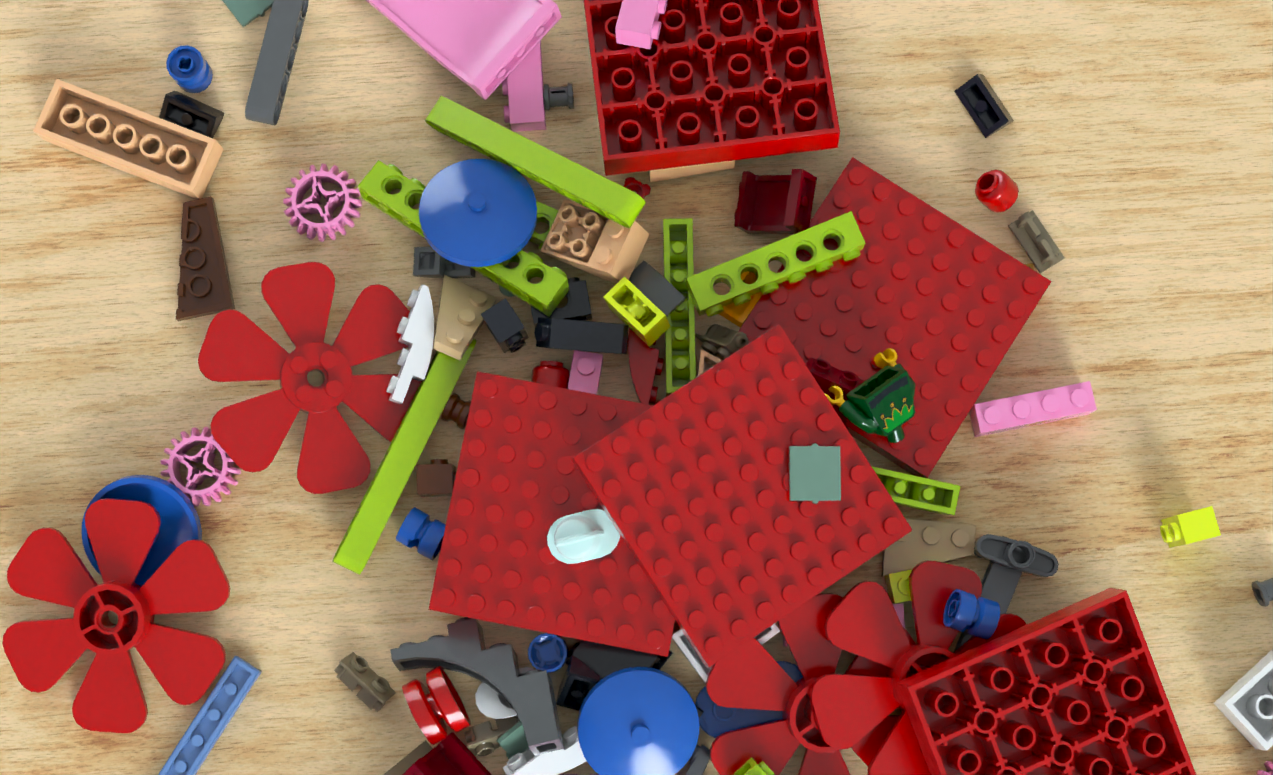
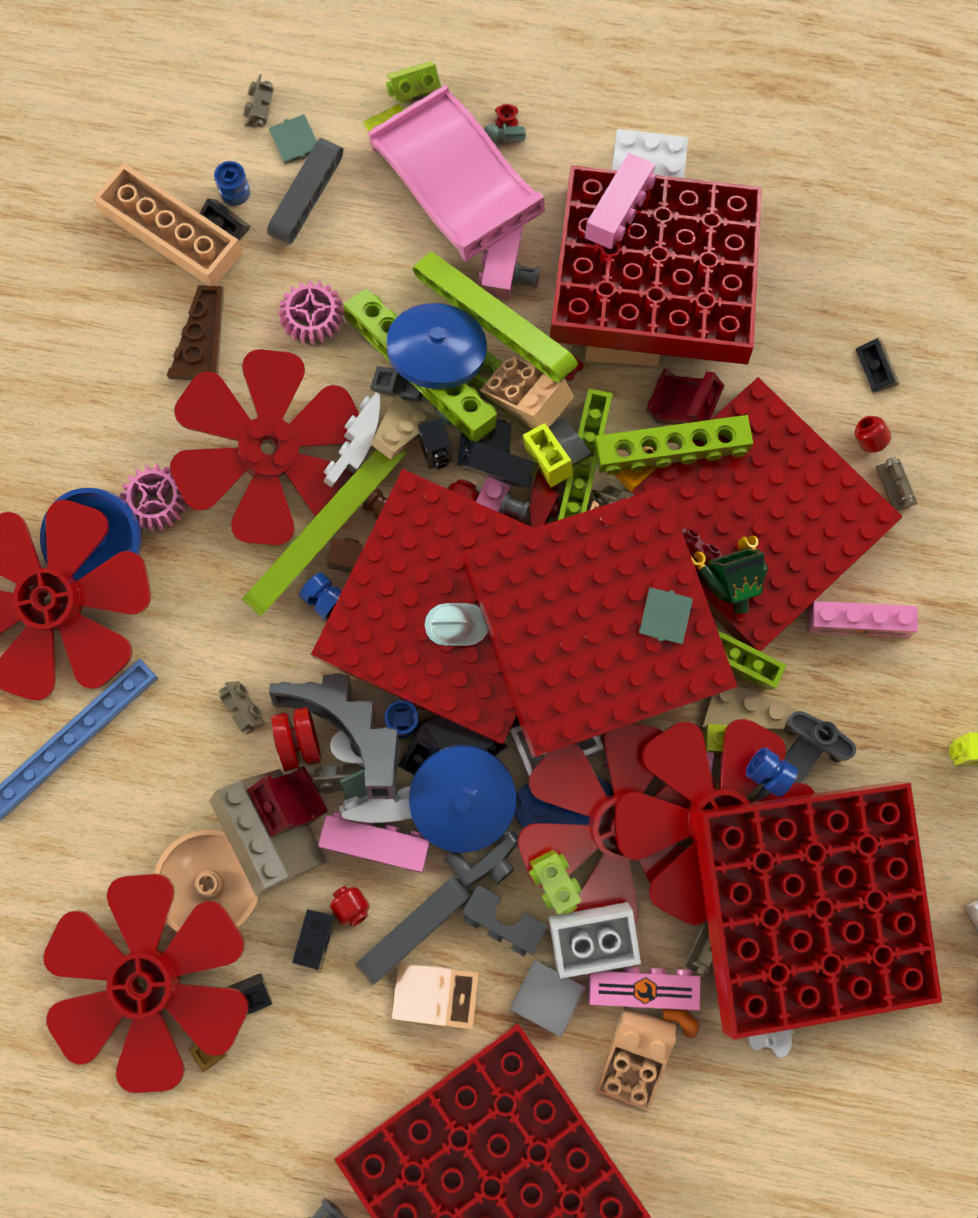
camera: 10 degrees right, 5 degrees down
(613, 383) = (514, 508): none -> dark grey connector

